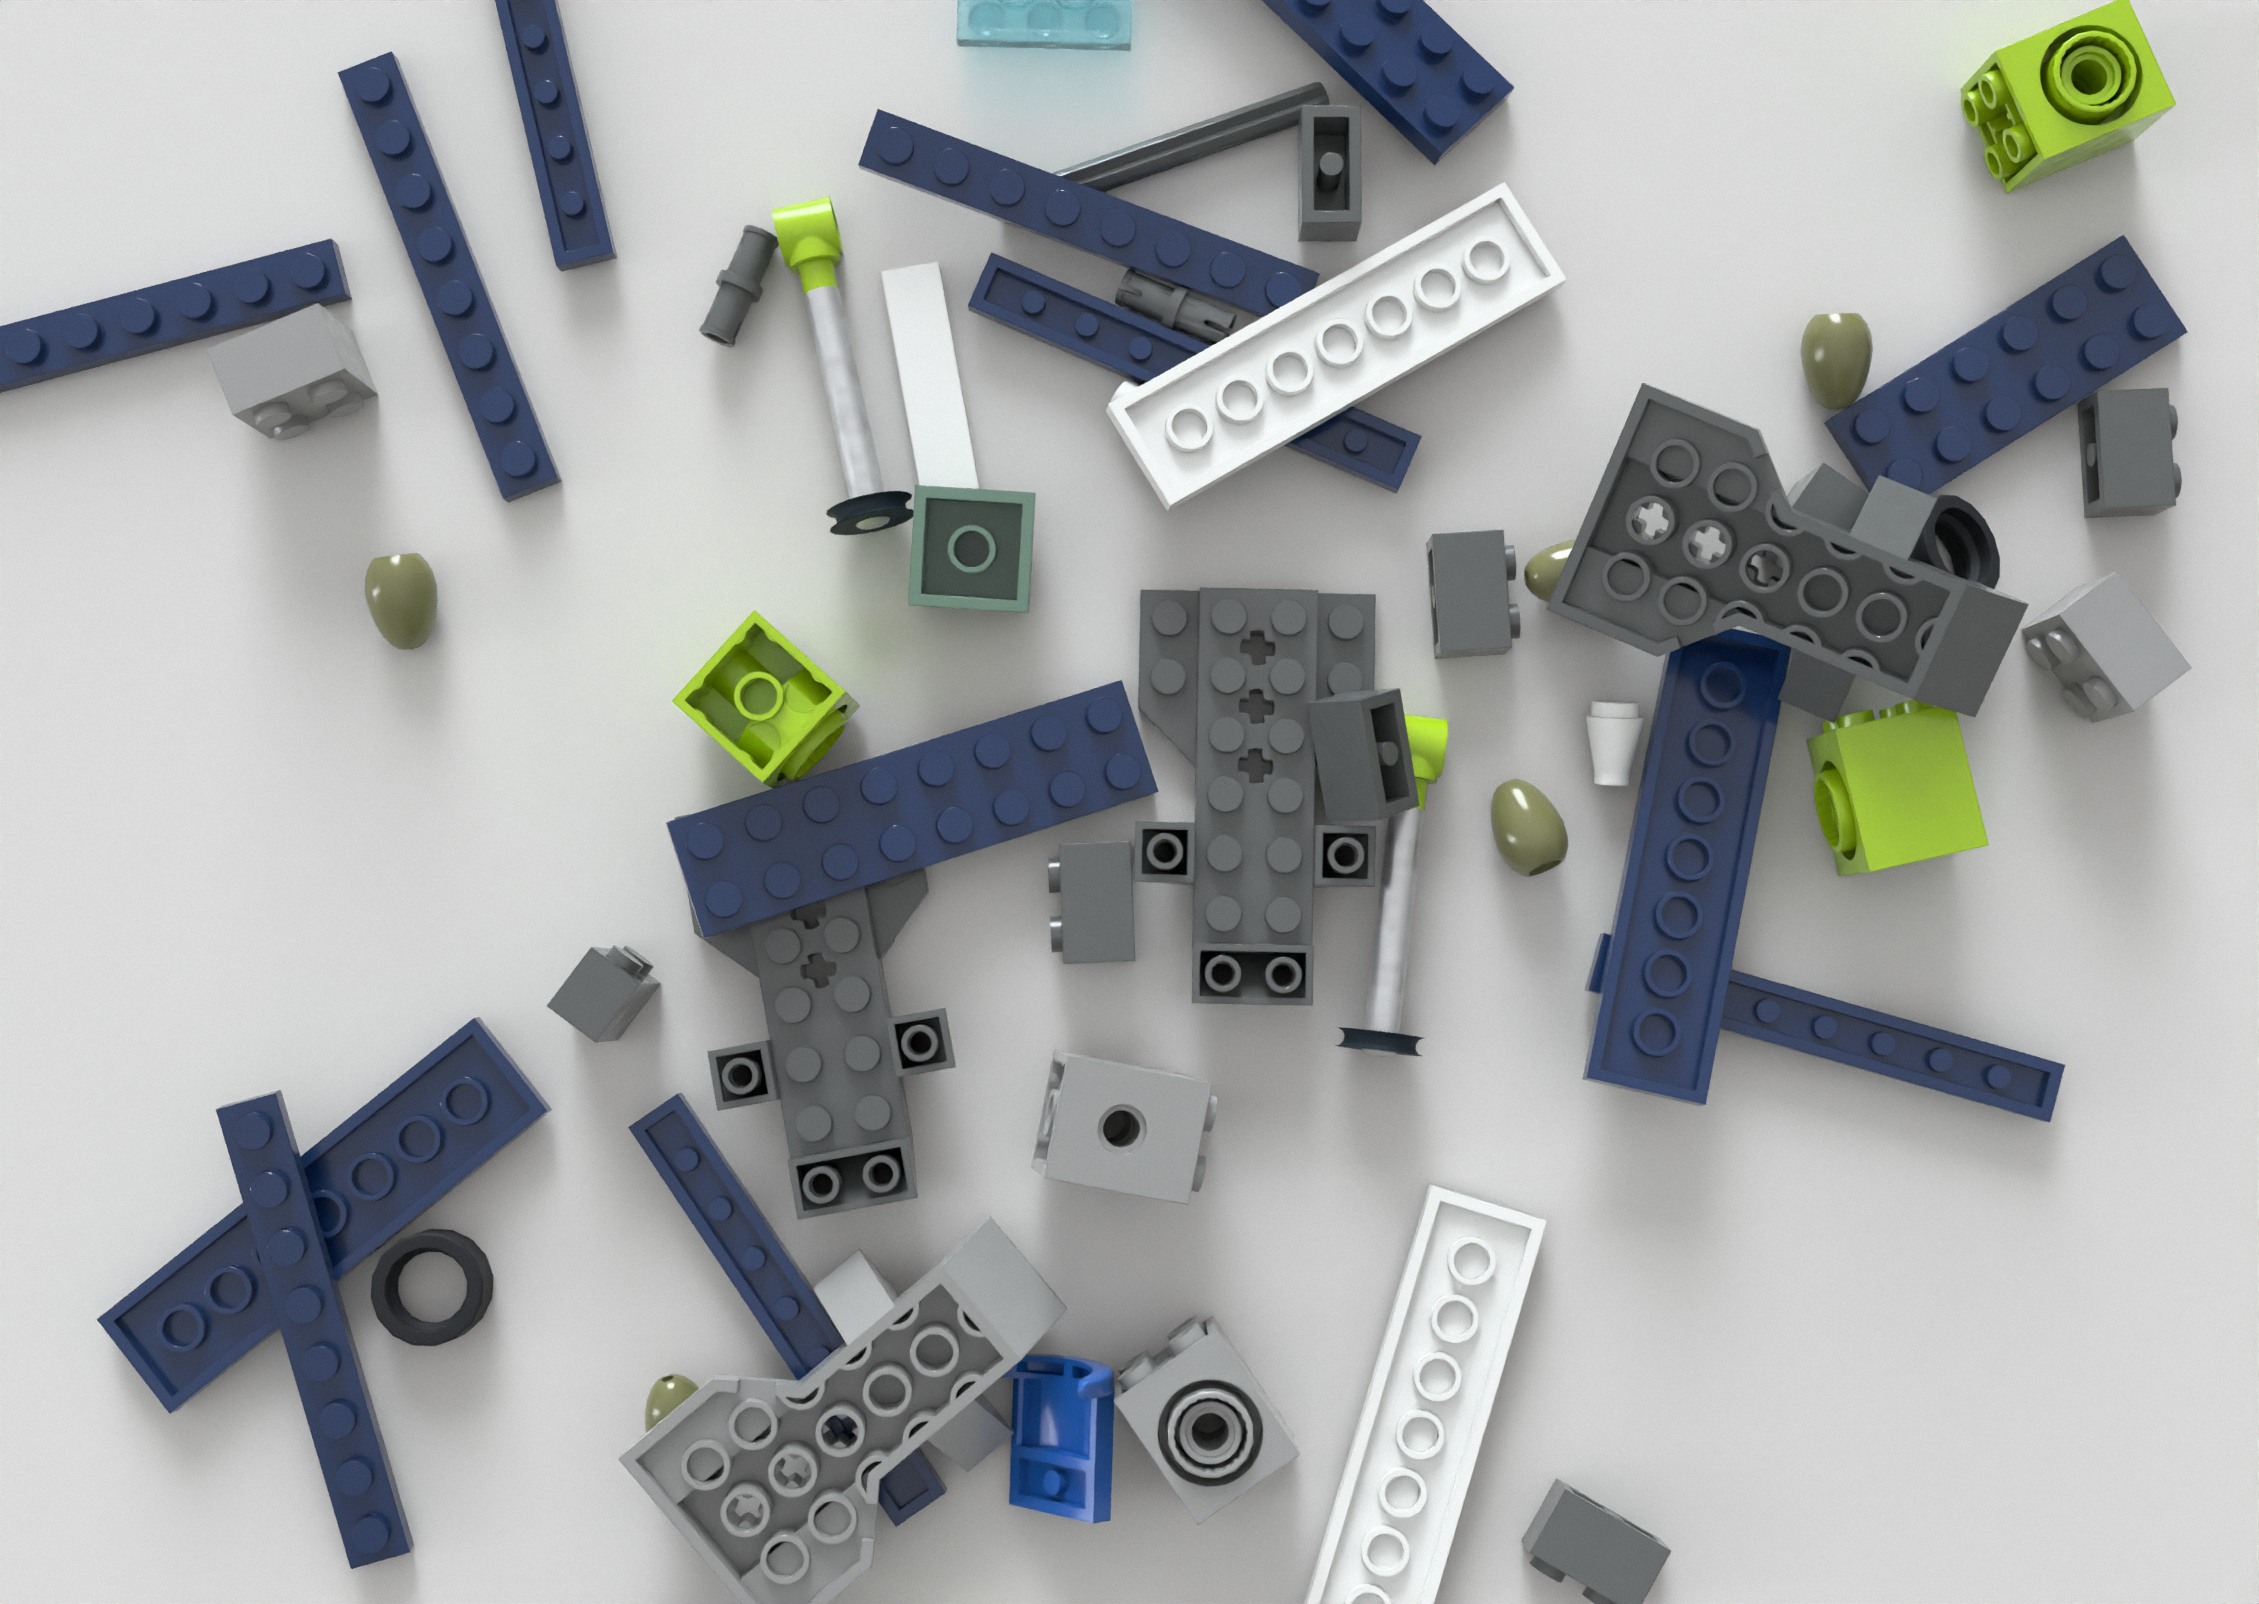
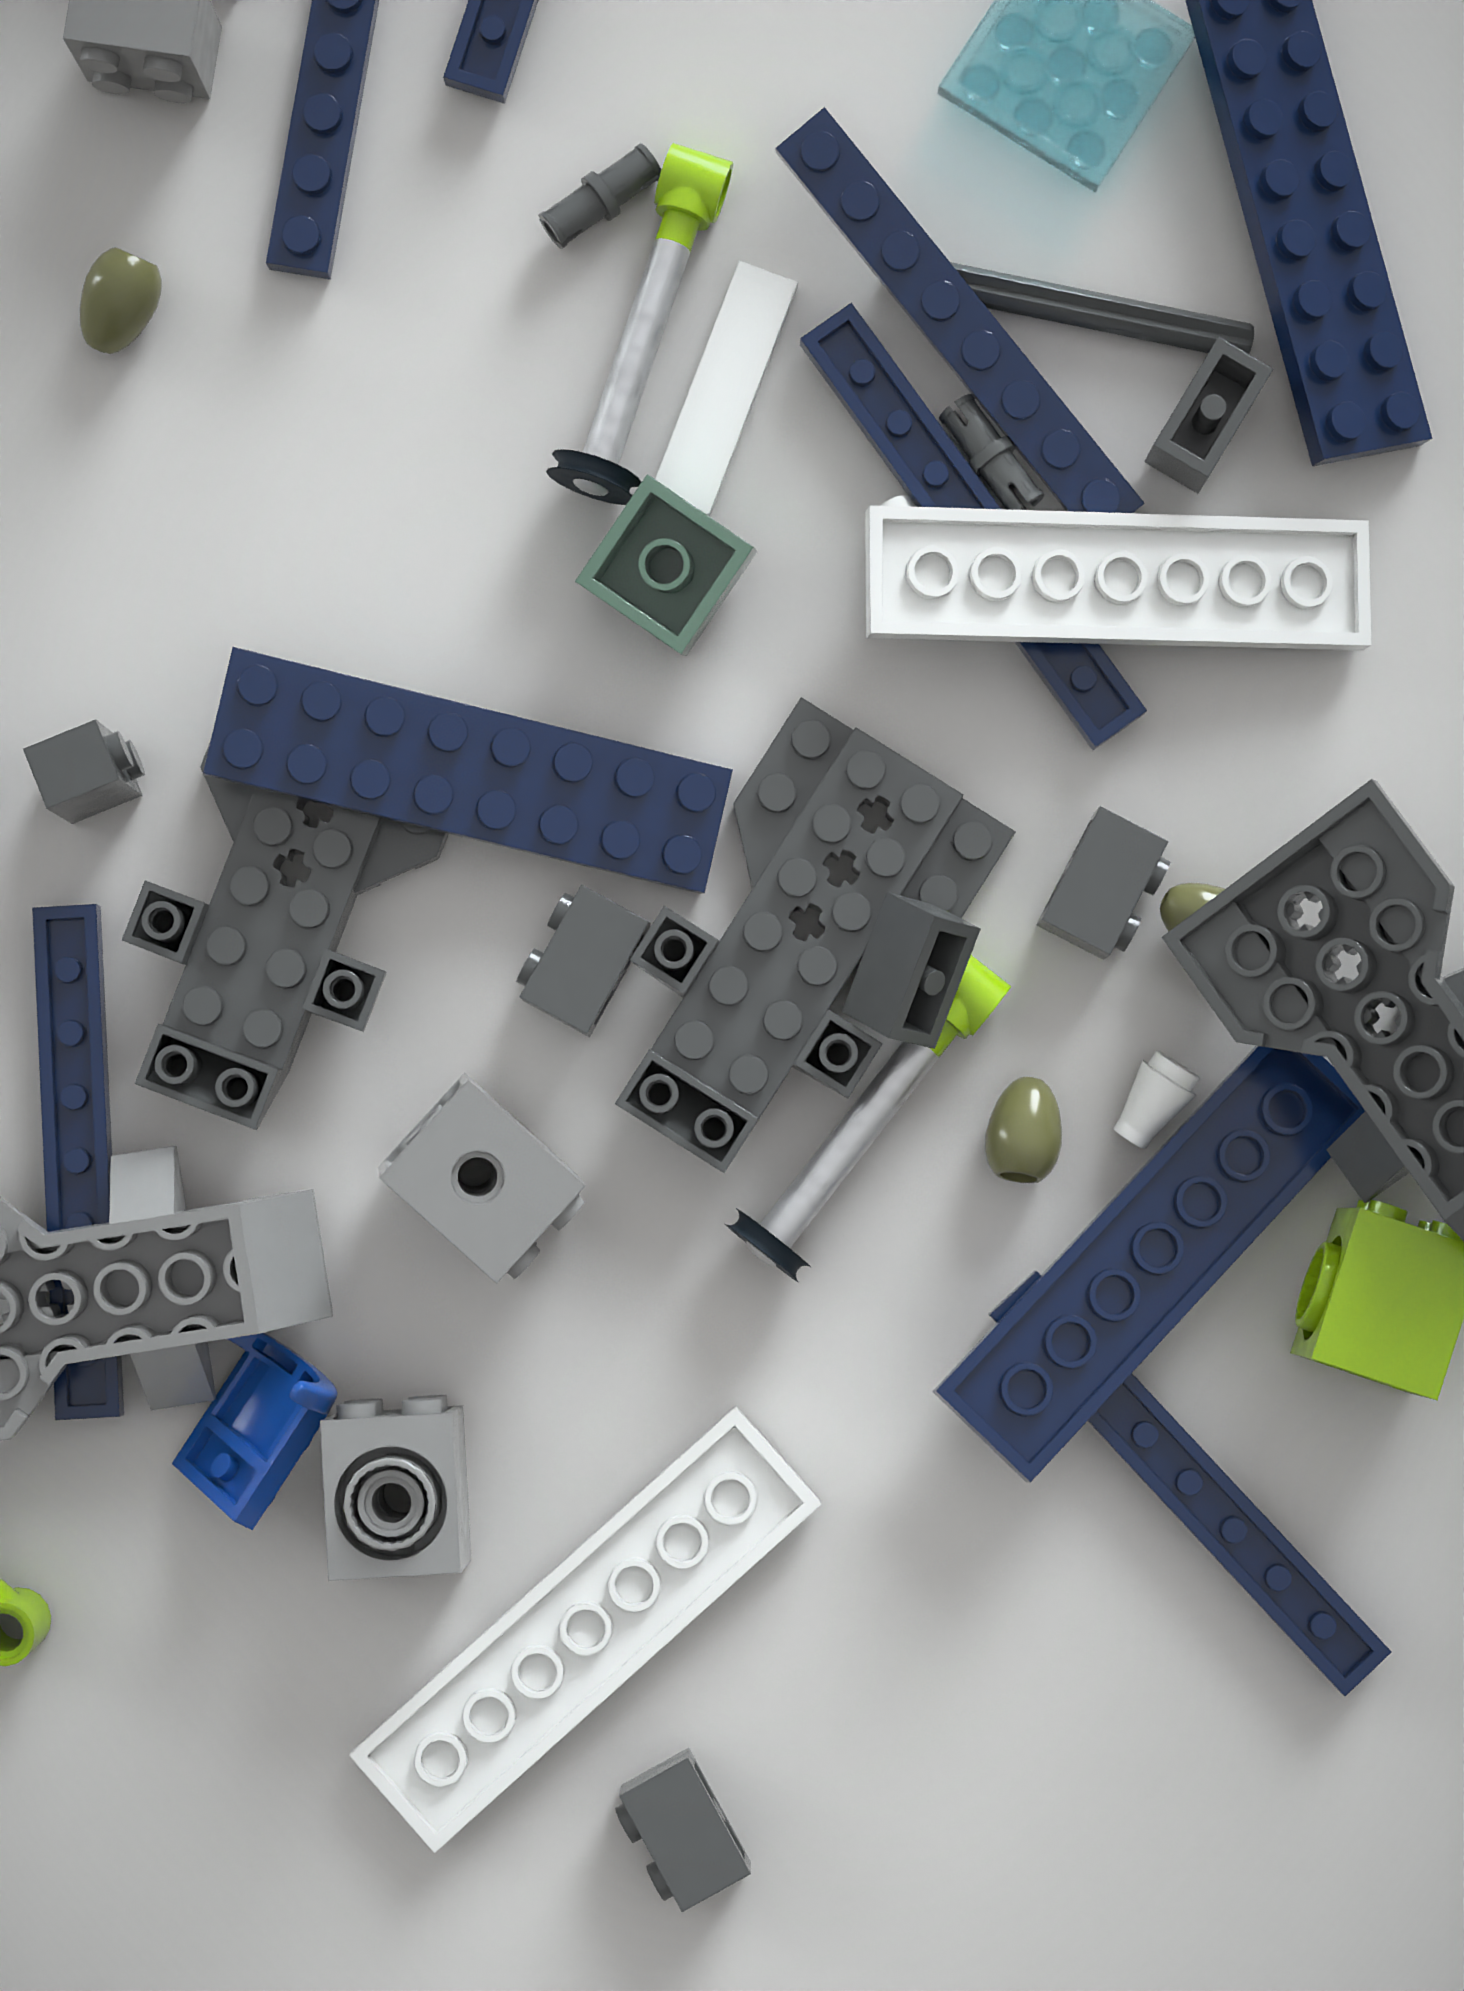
camera: 30 degrees right, 0 degrees up
(767, 703) = (391, 594): lime brick -> none

